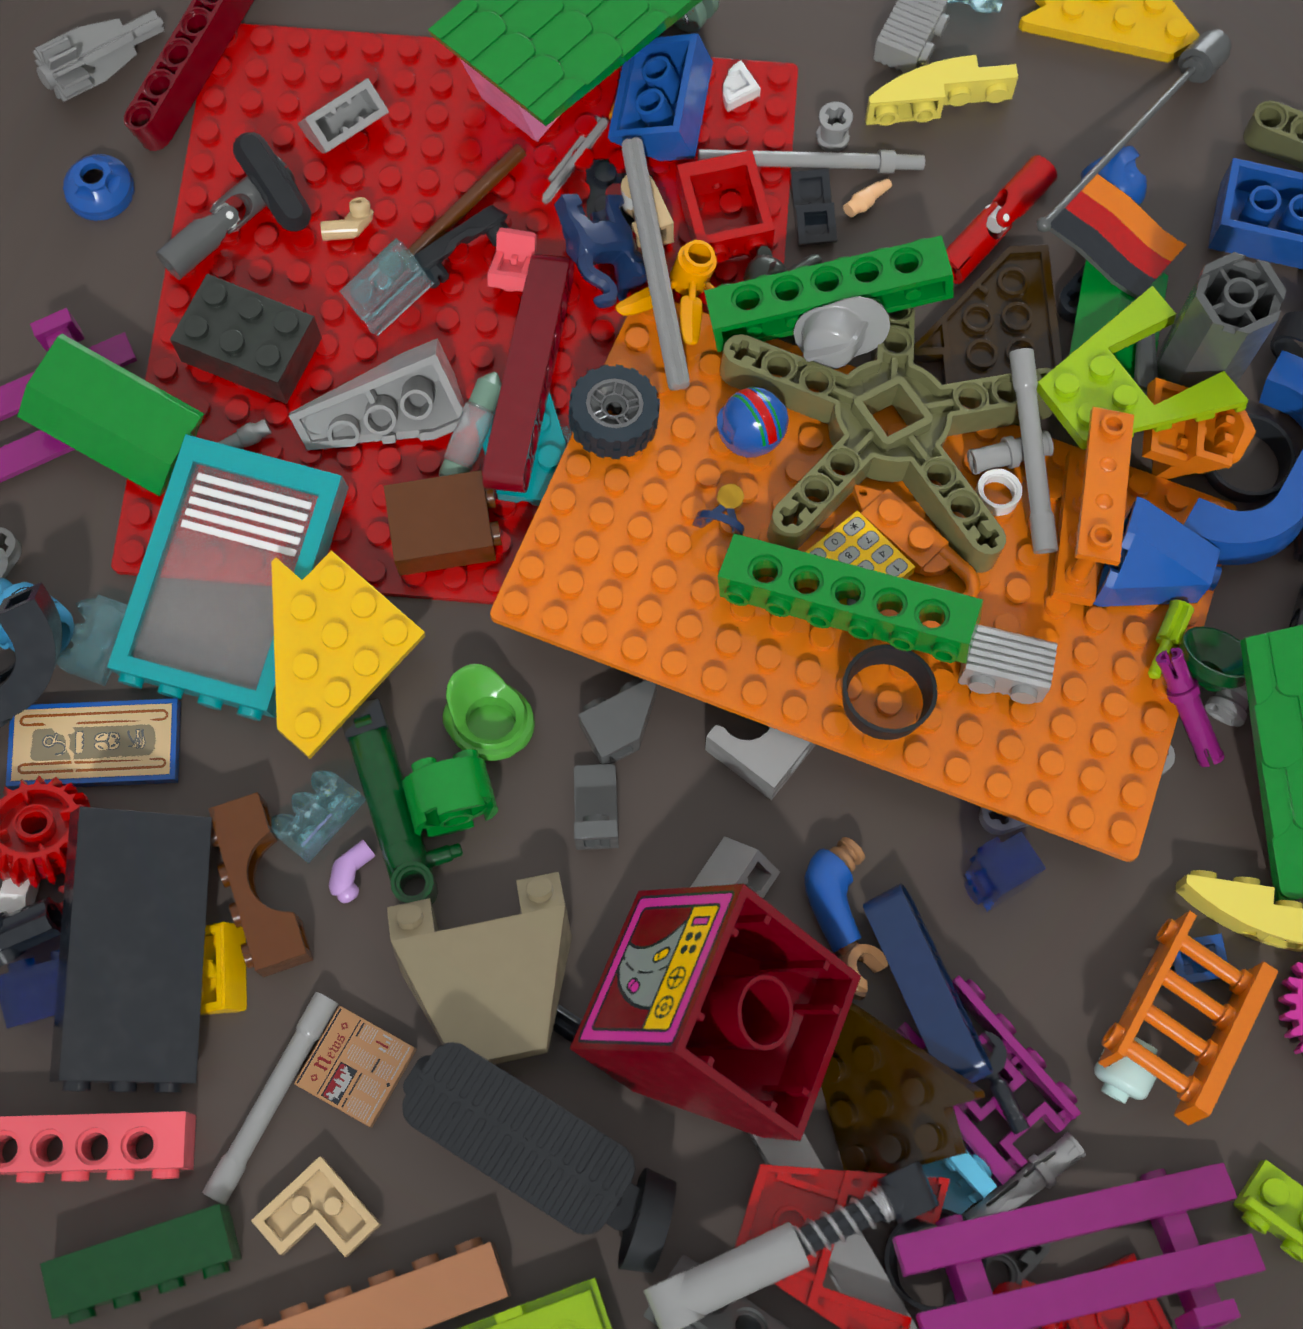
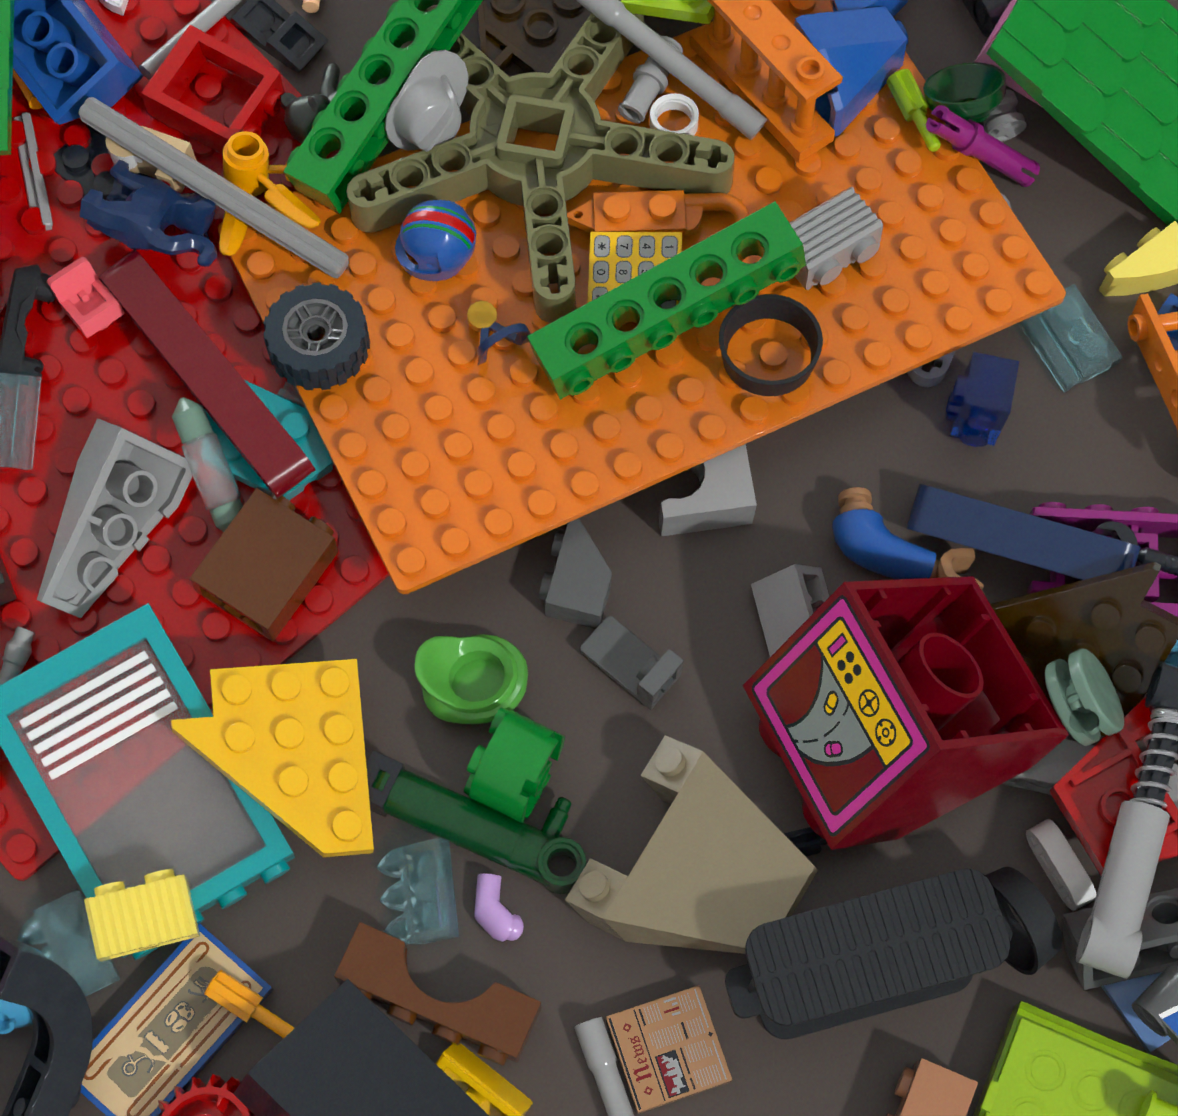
camera: 50 degrees left, 0 degrees up
(138, 657) = (141, 915): none -> light yellow brick
(146, 769) = (244, 1002): none -> light orange axle
(722, 1219) = (1061, 864): none -> white beam
(843, 1129) = (1084, 697): none -> sand green head
(1117, 896) = (1071, 341): none -> clear light blue plate

